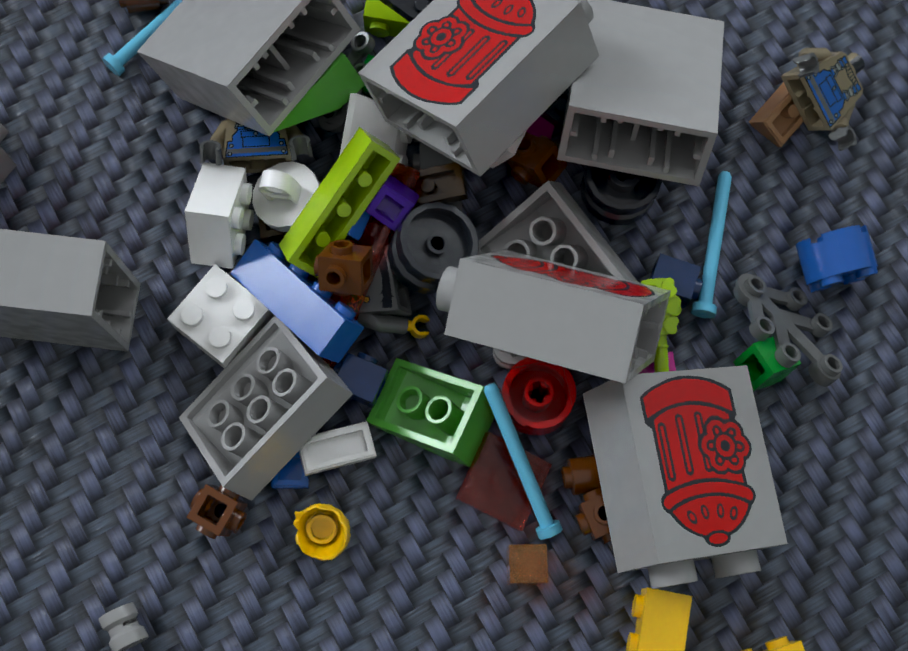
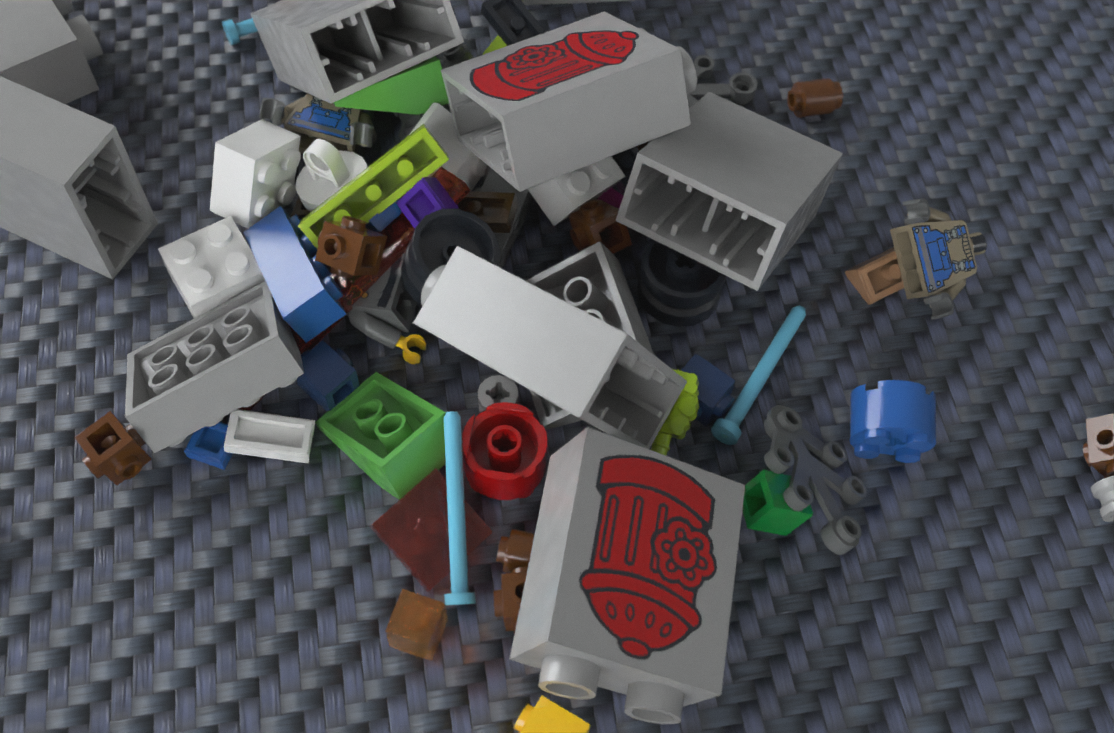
camera: 20 degrees right, 15 degrees down
(322, 531) = (213, 510): yellow hair -> none

